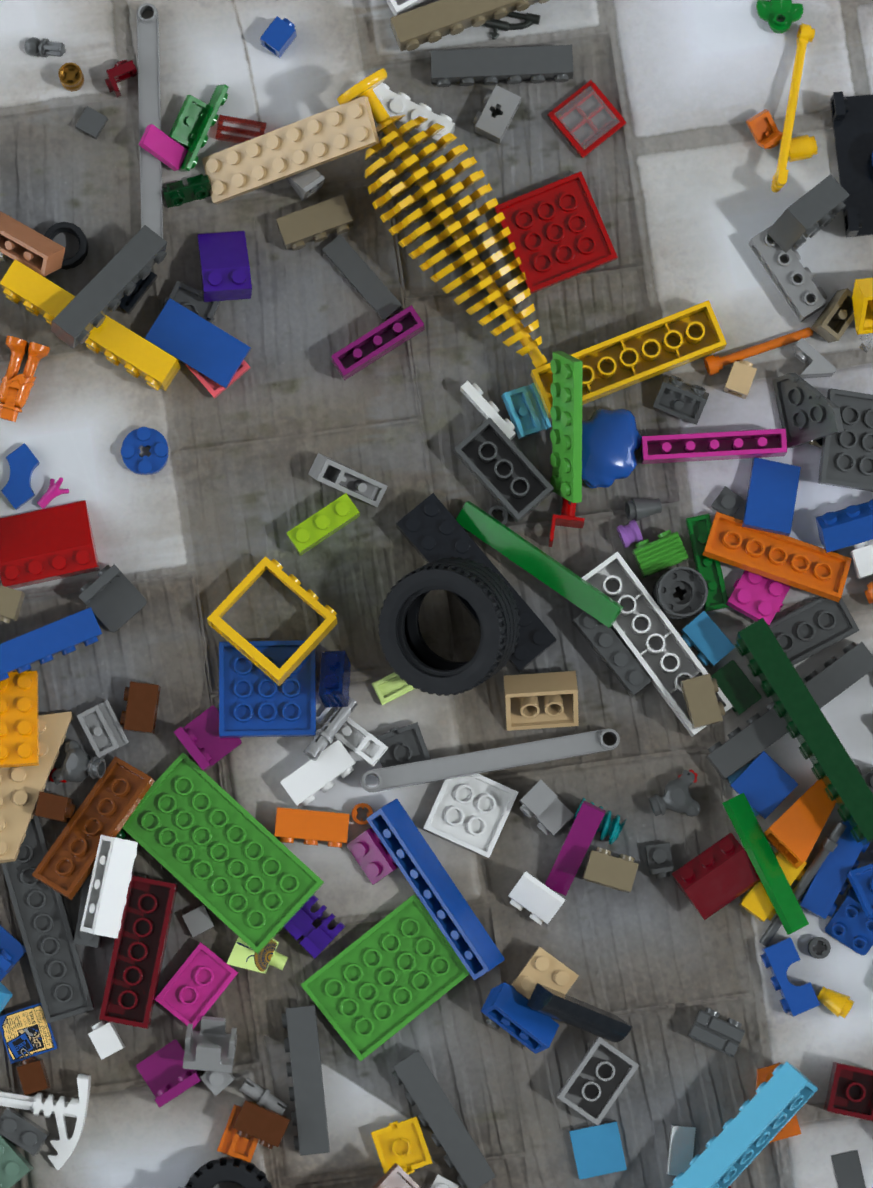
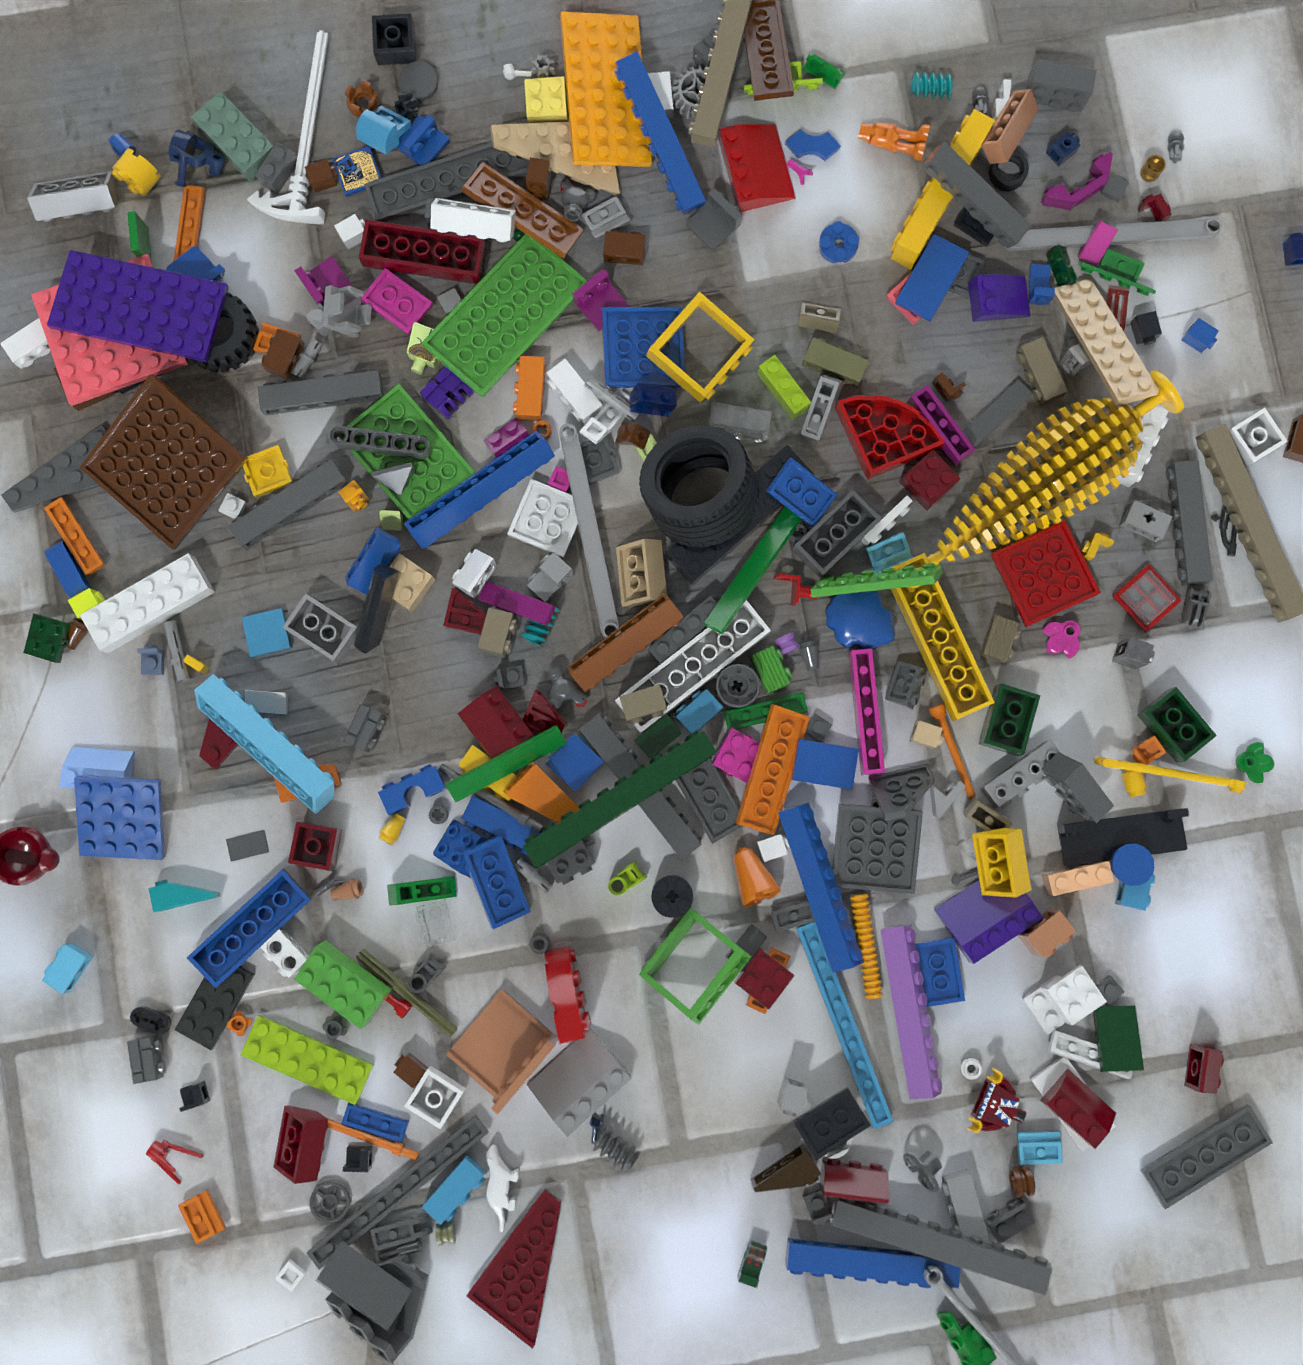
camera: 90 degrees right, 0 degrees up
(43, 186) = (1063, 148): none -> dark blue brick
(71, 137) = (1060, 197): none -> magenta slope
(208, 217) = (1039, 285): none -> blue bracket
(235, 478) = (819, 317): none -> dark tan slope
(267, 98) = (1146, 328): none -> black brick
(293, 461) = (835, 362): none -> olive brick
(328, 335) = (945, 387): none -> reddish brown bracket
(362, 578) = (741, 421): none -> clear brick
(374, 705) = (632, 435): none -> reddish brown bracket
(378, 1017) = (374, 436): none -> dark grey beam
(384, 407) = (886, 432): none -> red brick
(419, 988) = (396, 477): none -> slope
(424, 794) = (559, 479): none -> dark pink plate
(435, 1041) = (354, 496): none -> light orange bracket
(441, 359) = (929, 480): none -> dark red brick
(455, 508) = (801, 492): none -> blue tile
(467, 997) = (391, 520): none -> yellowish green slope
(525, 177) = (1090, 547): none -> yellow bracket
(584, 911) = (463, 614): none -> dark red wing
(604, 66) = (1195, 609): none -> dark grey arm
(625, 721) = (625, 642): none -> dark orange brick
(631, 288) = (1000, 639): none -> dark tan brick
(634, 220) = (1060, 640): none -> dark pink plate
(654, 139) = (1133, 653): none -> flat silver brick
(708, 821) = (542, 715): none -> dark red wing
(726, 284) = (1009, 720): none -> dark green brick
(737, 96) = (1177, 725): none -> dark green brick

